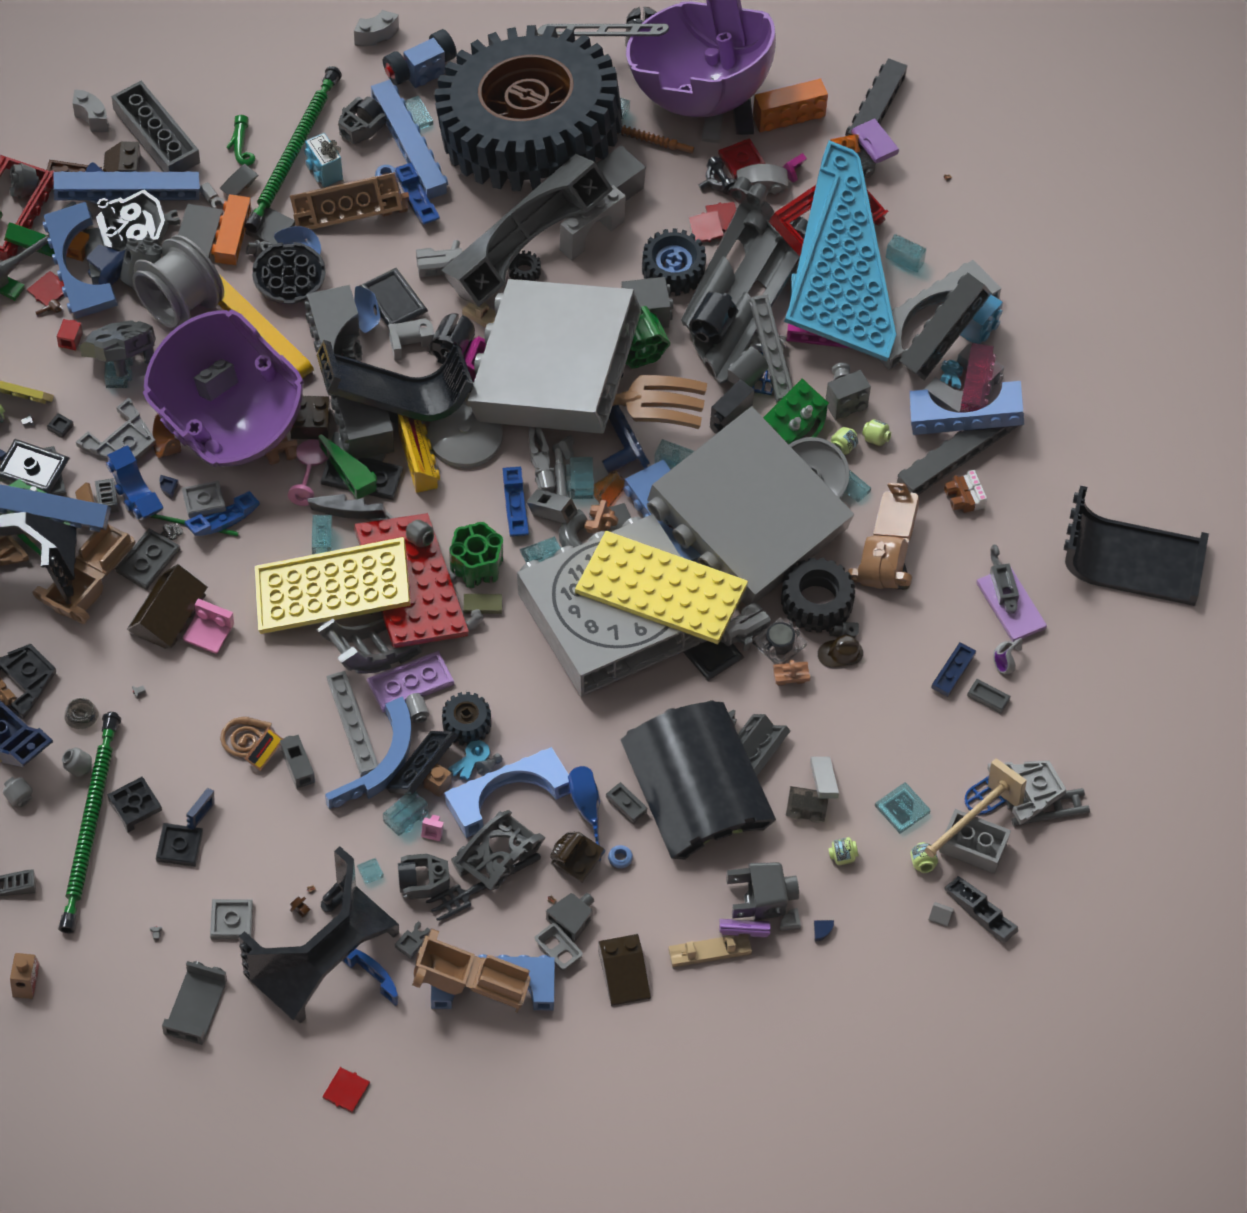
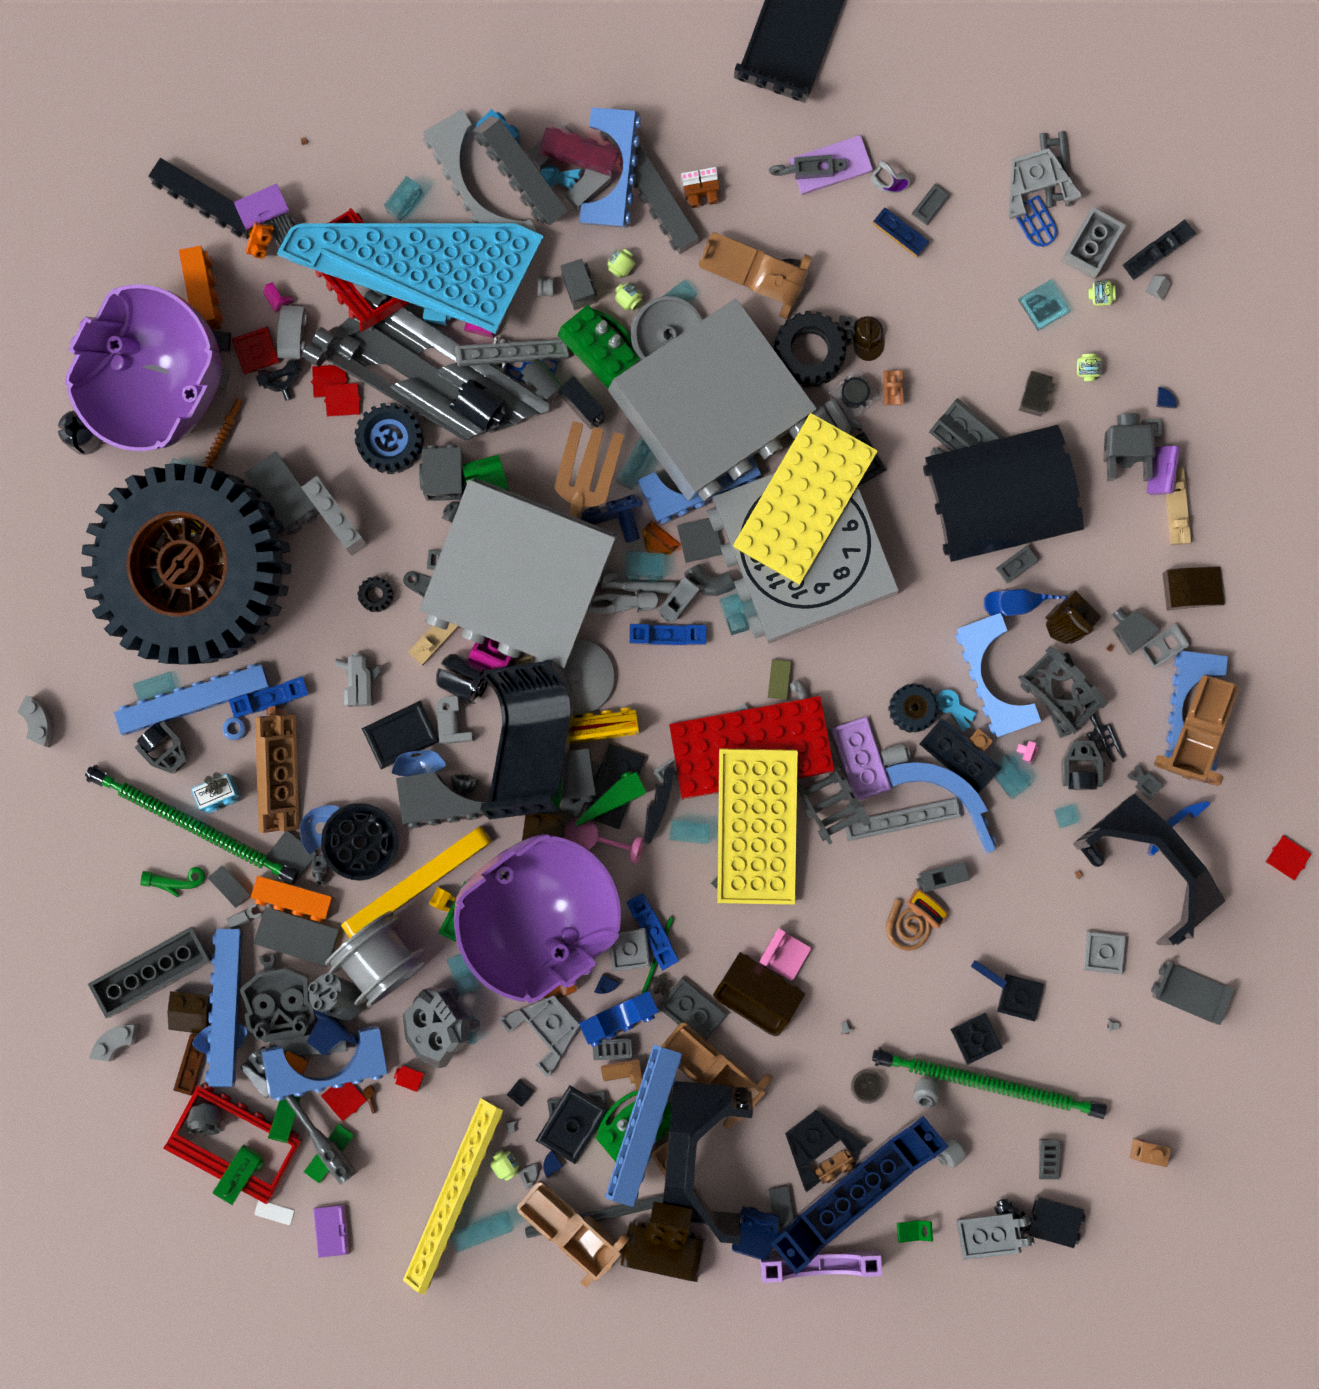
camera: 80 degrees left, 25 degrees up
(215, 379) = (503, 926): dark grey brick -> none
(301, 908) = (1099, 887): reddish brown plate -> none
(420, 533) = (705, 733): dark grey head -> none
(421, 62) = (95, 675): brick -> none
(472, 565) = (731, 695): green piece -> none
(487, 766) = (965, 693): dark grey piece -> none
(567, 192) = (384, 637): dark grey arch -> none
(602, 28) = (59, 535): piece -> none
(603, 517) = (692, 548): nougat hips -> none
(620, 863) = (1065, 581): medium blue piece -> none
(824, 777) = (1013, 373): light grey tile -> none
(1004, 783) = (1042, 202): tan tile -> none

